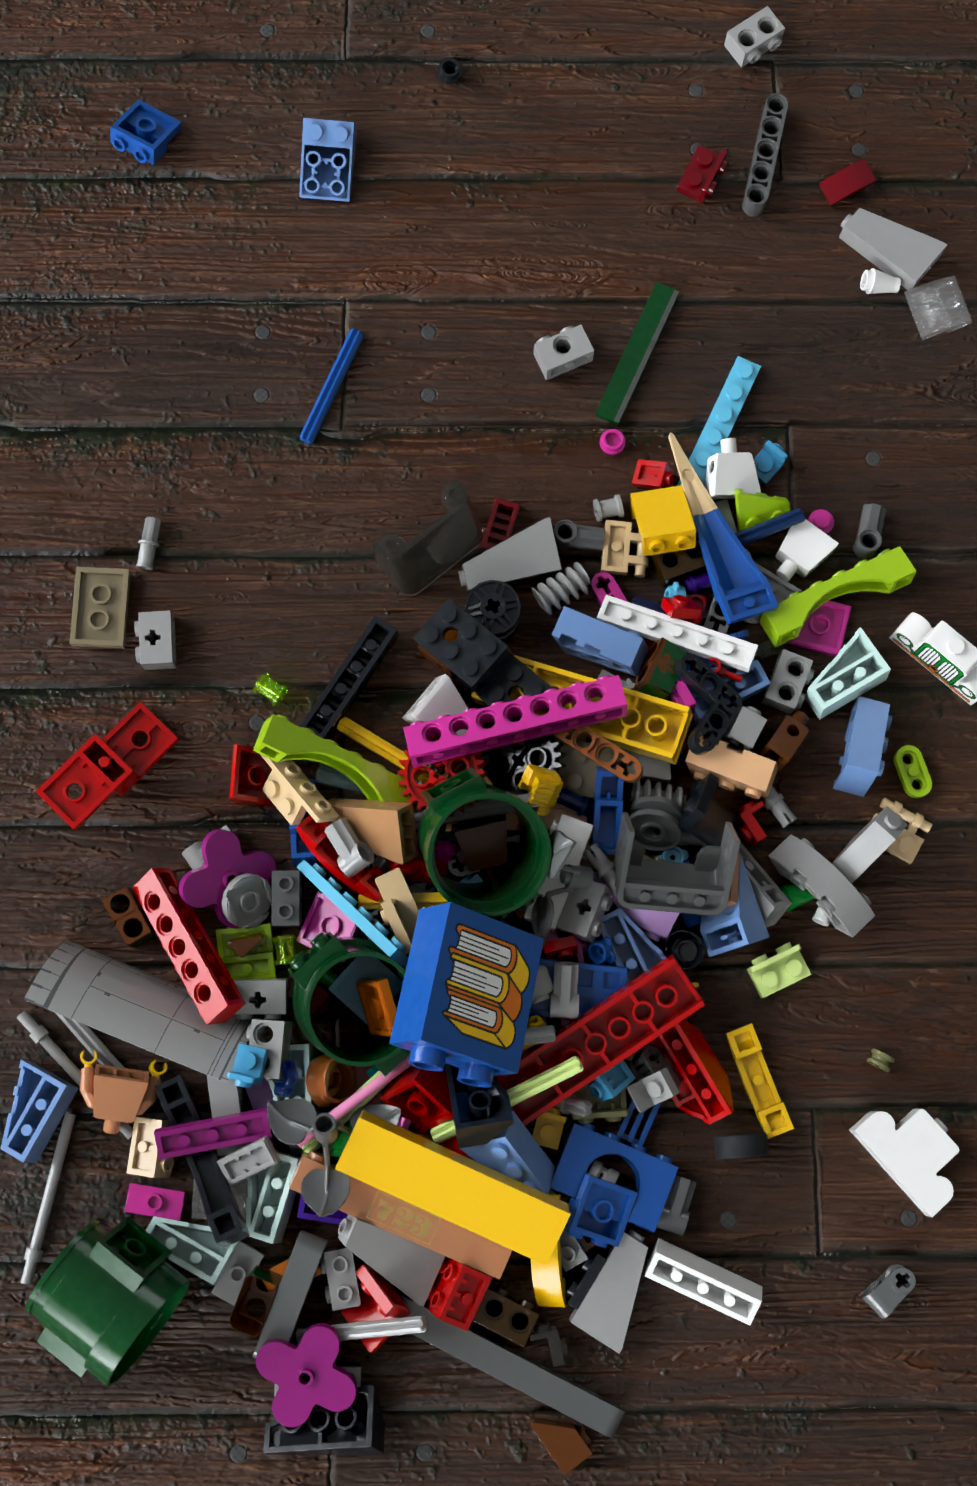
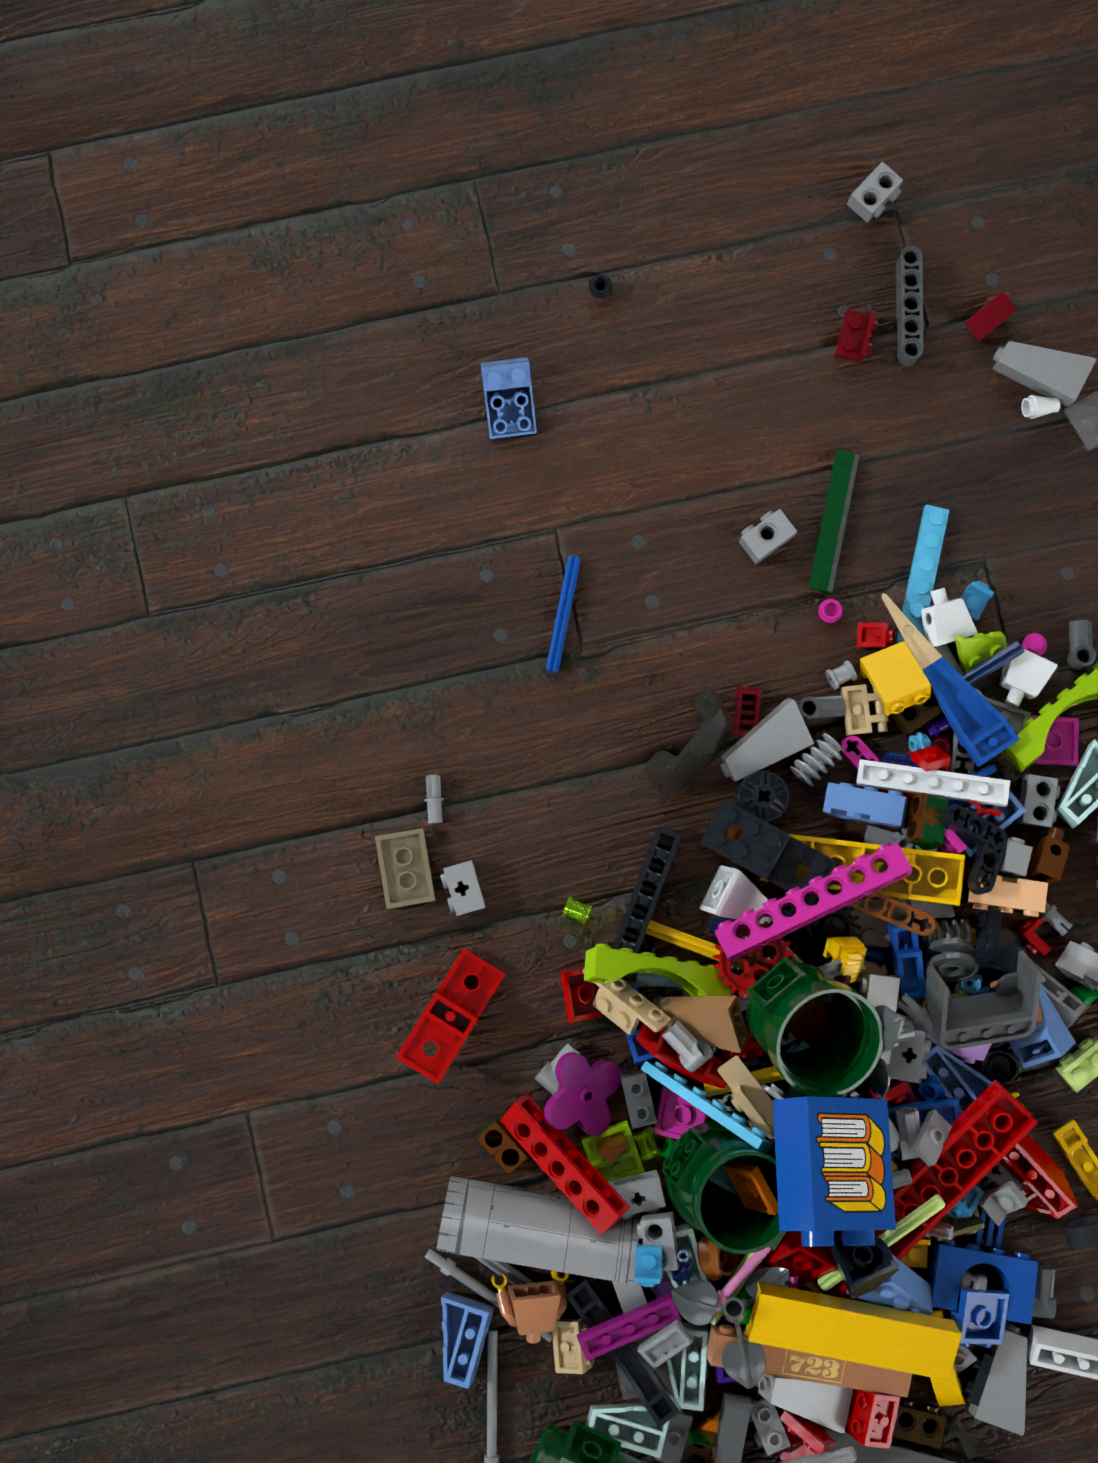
camera: 10 degrees left, 5 degrees up
(144, 132) = (333, 409): blue plate -> none
(155, 1201) = (586, 1390): dark pink plate -> none
(247, 900) = (604, 1109): light grey tile -> none
(586, 997) = (931, 1138): none -> light grey plate

